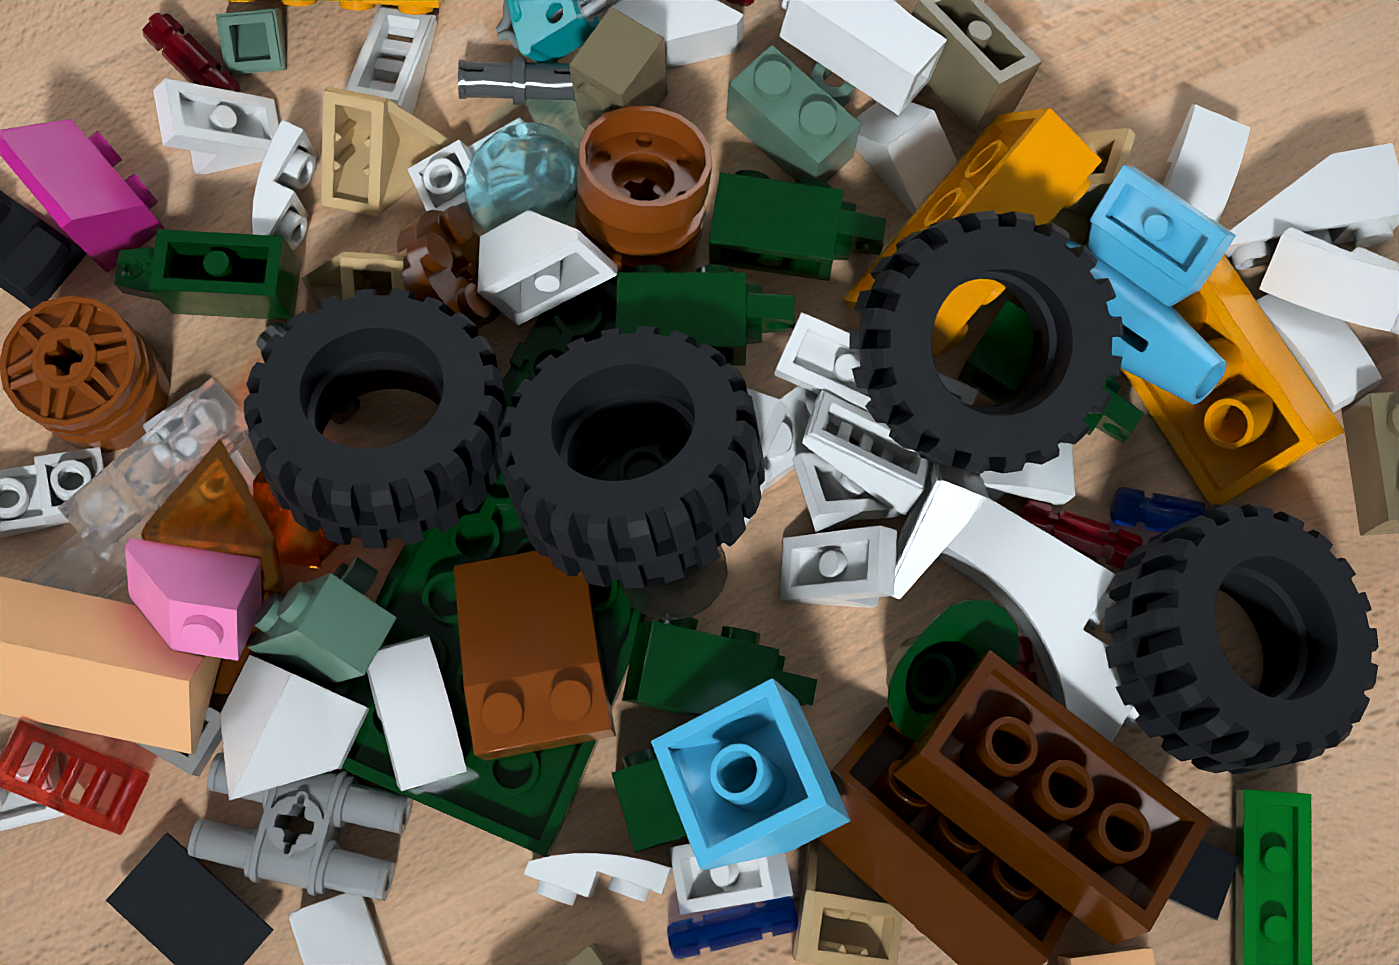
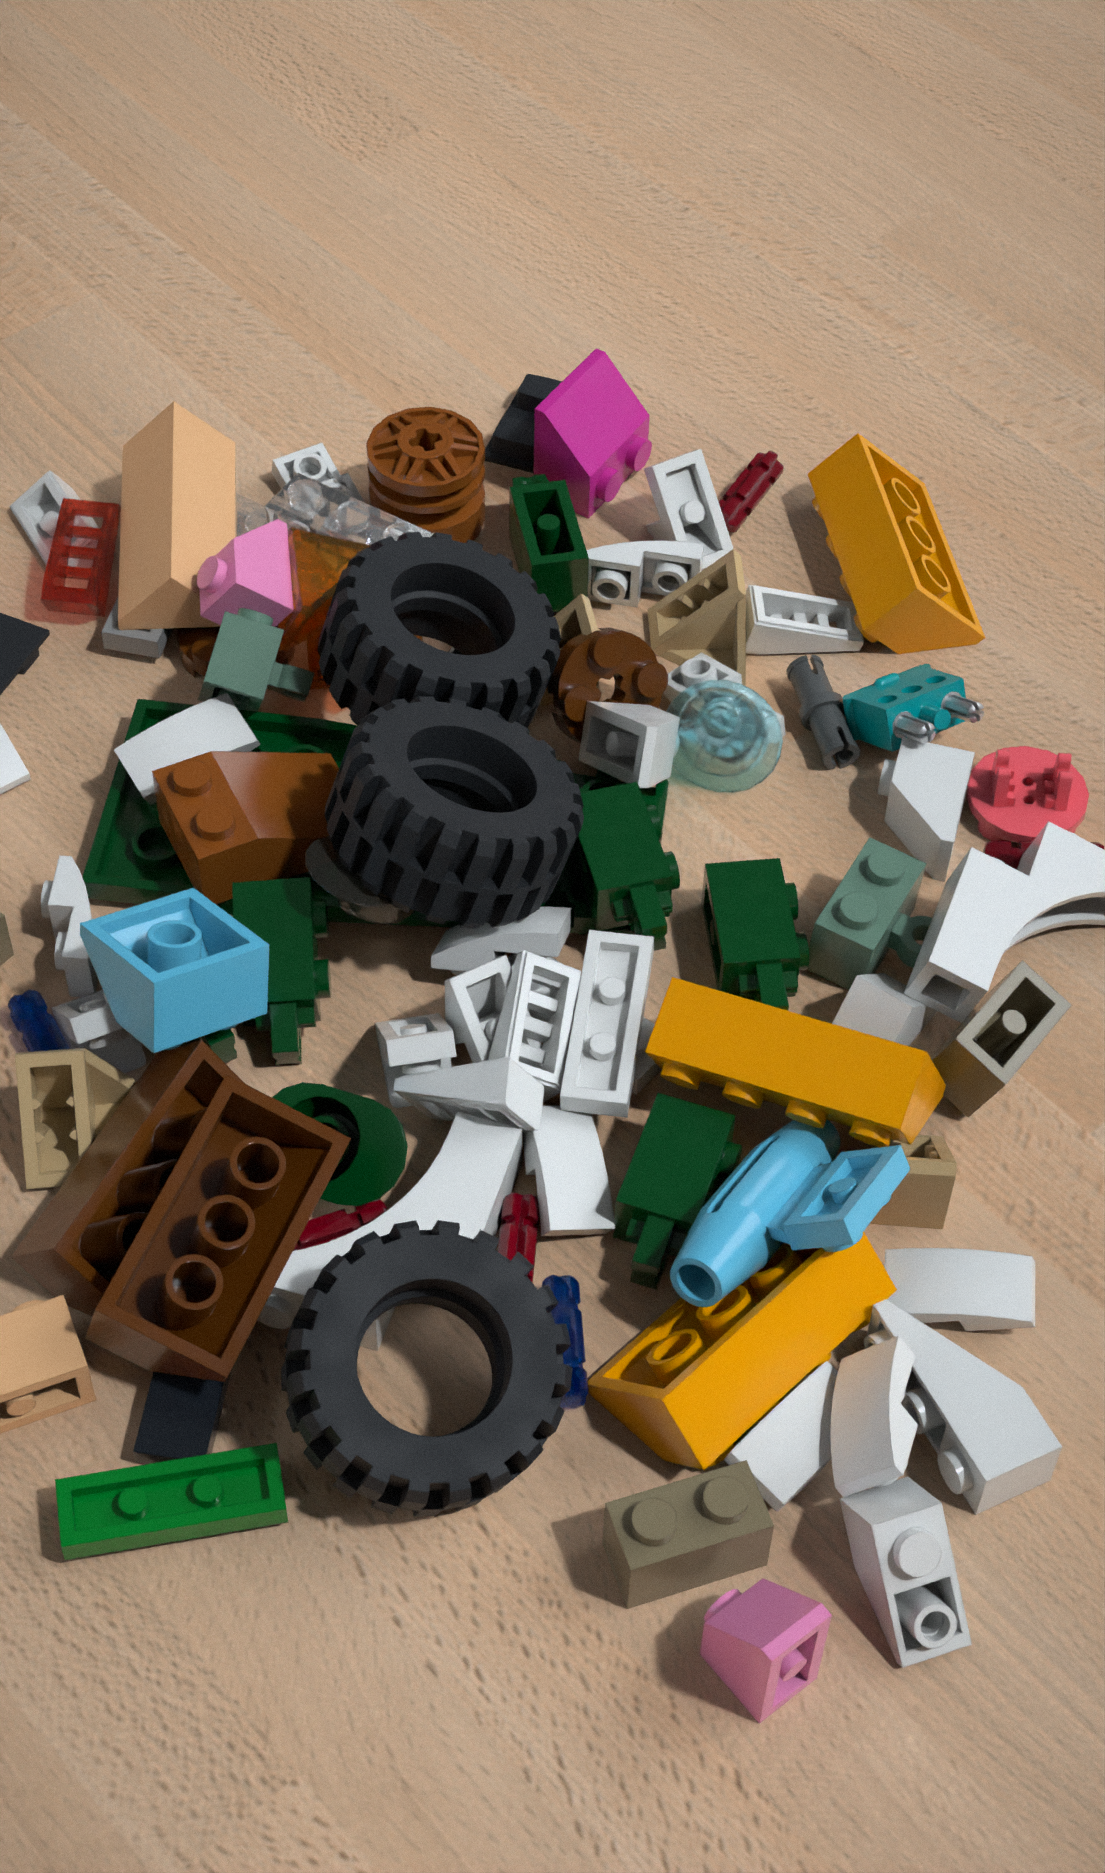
camera: 70 degrees right, 25 degrees down
(253, 40) = (785, 528): sand green slope -> none
(283, 729) = (150, 670): white slope -> none
(306, 860) = (72, 716): light grey pin -> none
(618, 68) = (840, 762): dark tan brick -> none
(643, 186) = (734, 793): dark orange wheel -> none
(1068, 331) = (623, 969): black tyre -> none

